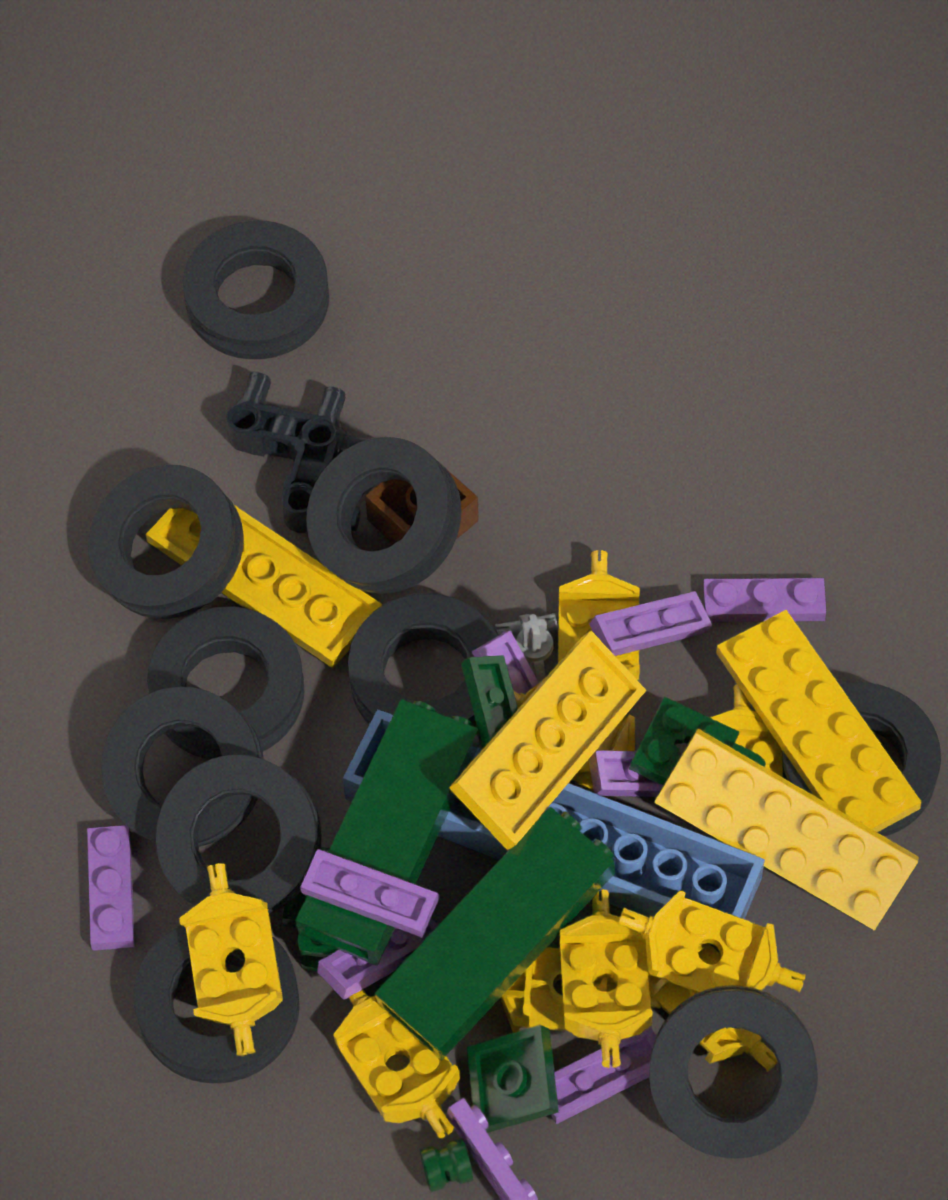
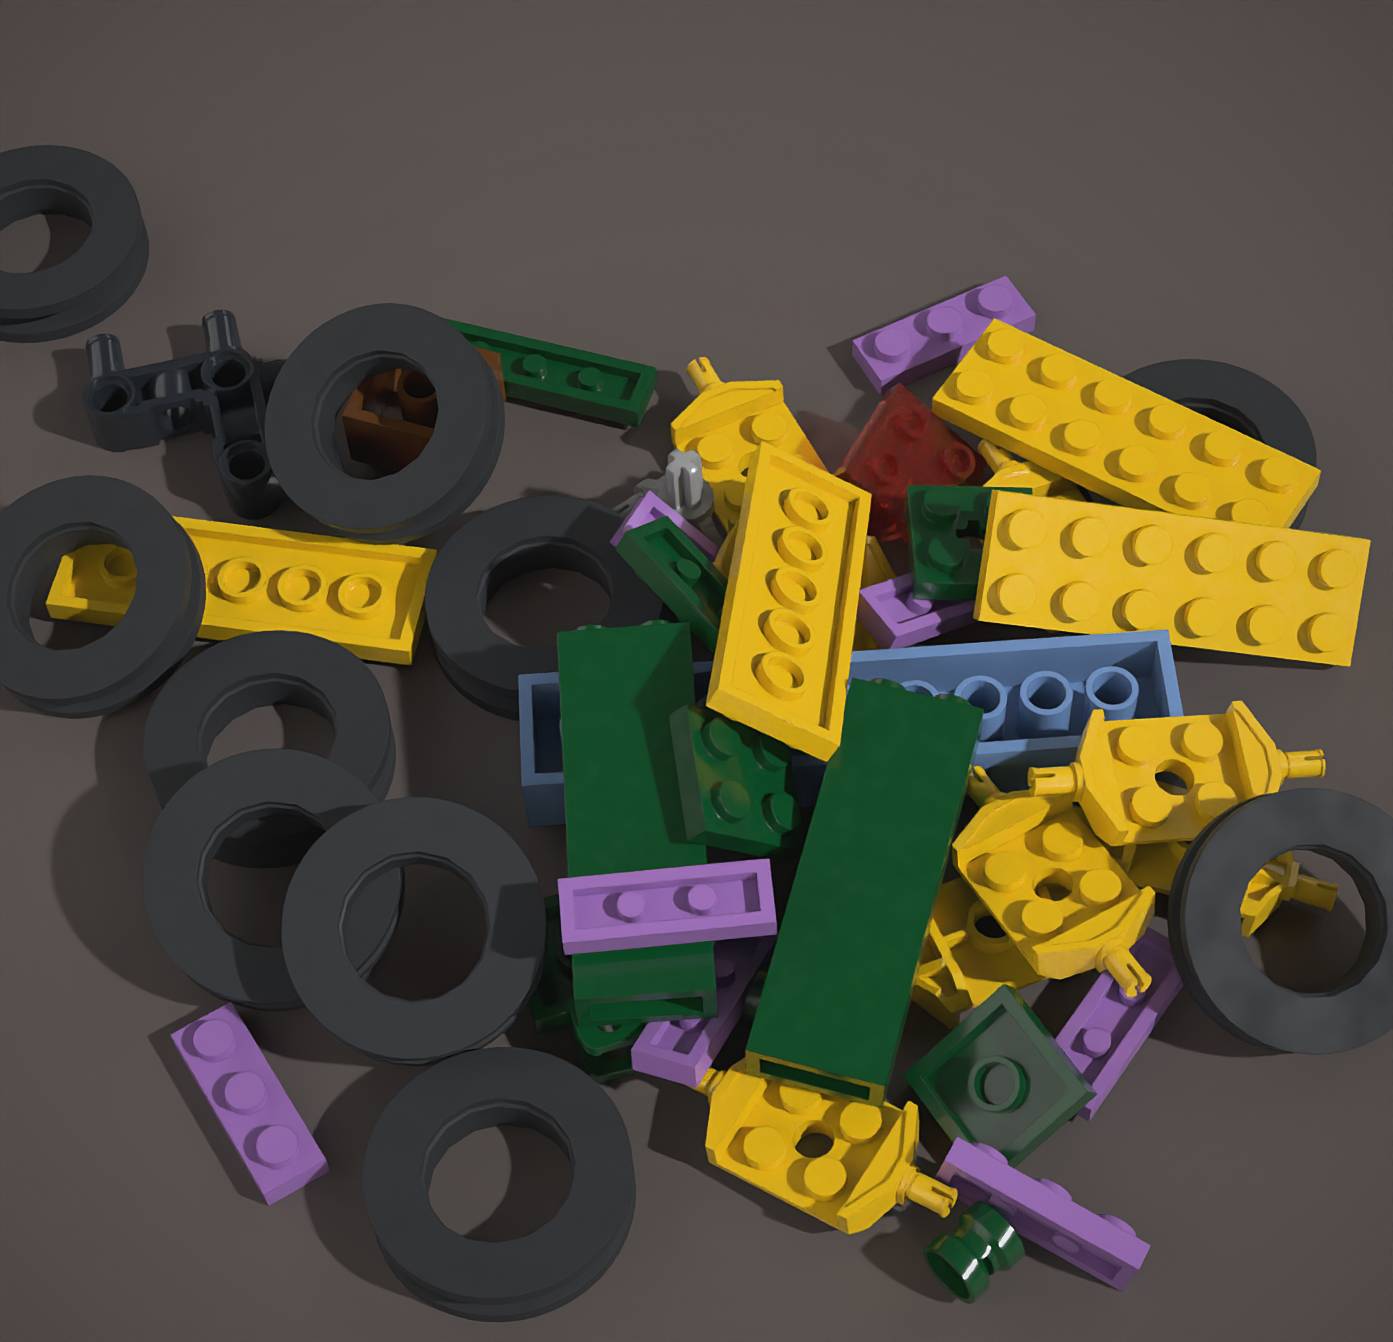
camera: 25 degrees left, 5 degrees down
(214, 930) = (457, 1068): yellow plate -> none
(449, 840) = (736, 786): none -> dark green plate
(511, 516) = (567, 376): none -> dark green plate
(651, 623) = (822, 413): medium lavender plate -> none
(685, 673) = (902, 448): none -> clear red plate

